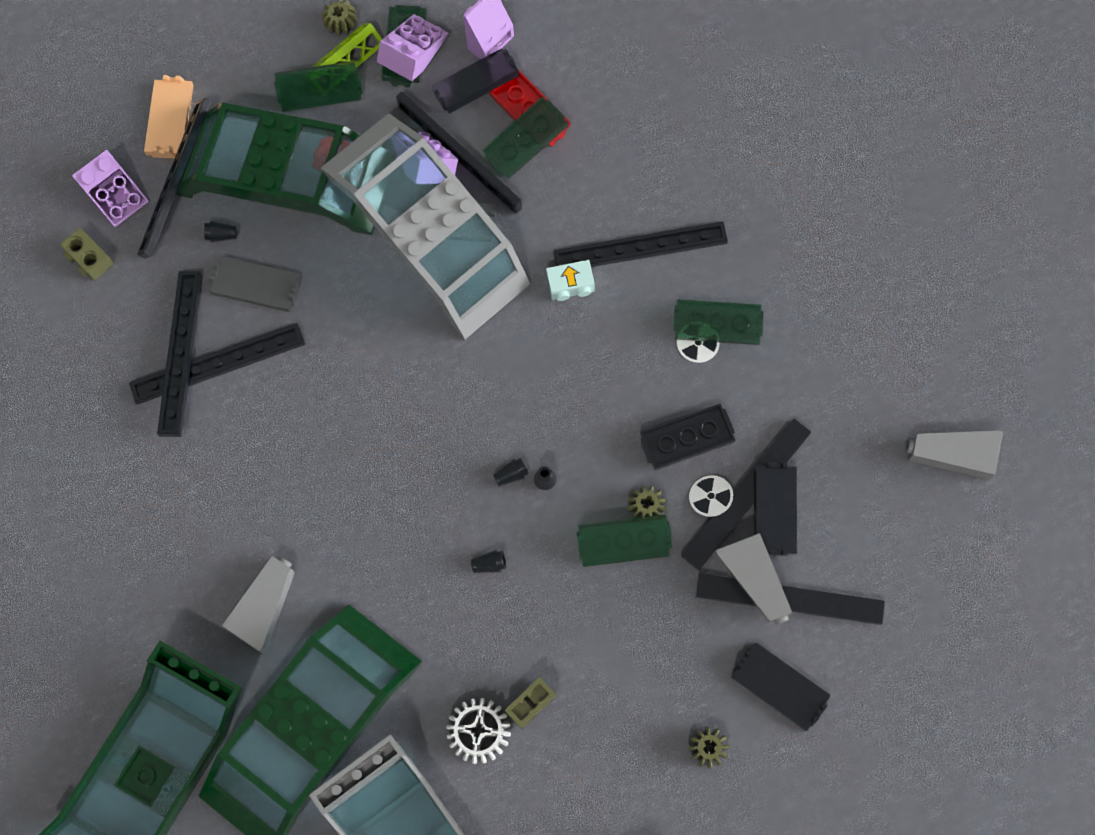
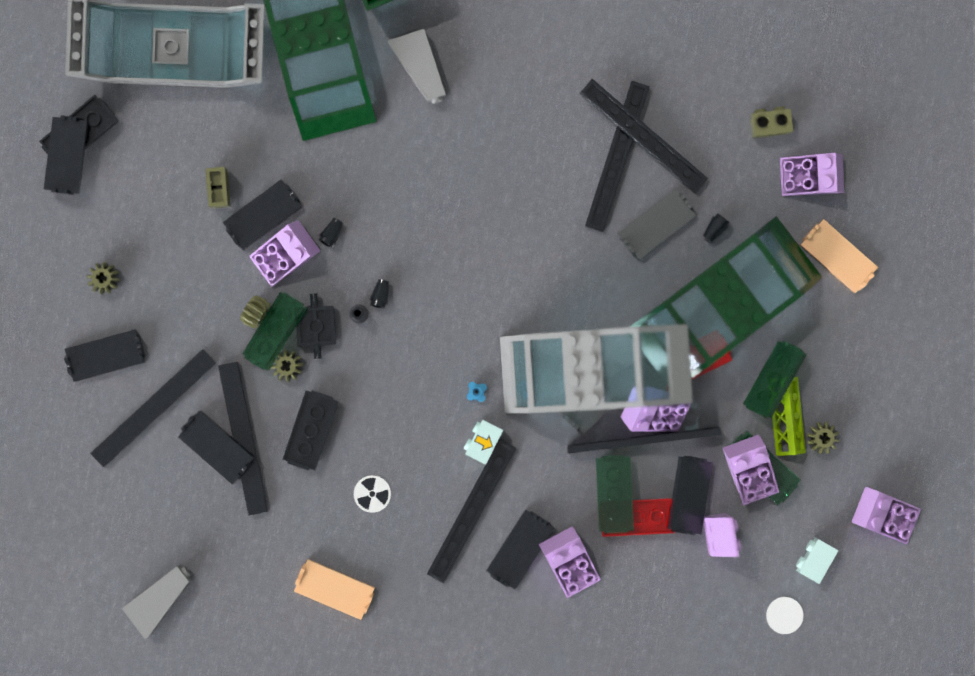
camera: 125 degrees right, 15 degrees up
(173, 179) = (782, 225): black tile -> none
(499, 733) = (216, 130): white gear -> none
(523, 642) = (262, 215): none -> black brick
(531, 327) = (472, 395): none -> dark azure plate
(543, 590) = (284, 253): none -> lavender slope
(588, 505) = (316, 326): none -> black plate
(614, 134) = (569, 562): none -> lavender slope
(620, 571) = (255, 311): none -> olive gear
(639, 182) = (519, 549): none -> black brick
(711, 496) = (260, 413): white sticker -> none
(718, 322) = (373, 517): clear green brick -> none
(755, 573) = (187, 397): light grey slope -> none
(809, 308) = (334, 589): none -> light nougat brick

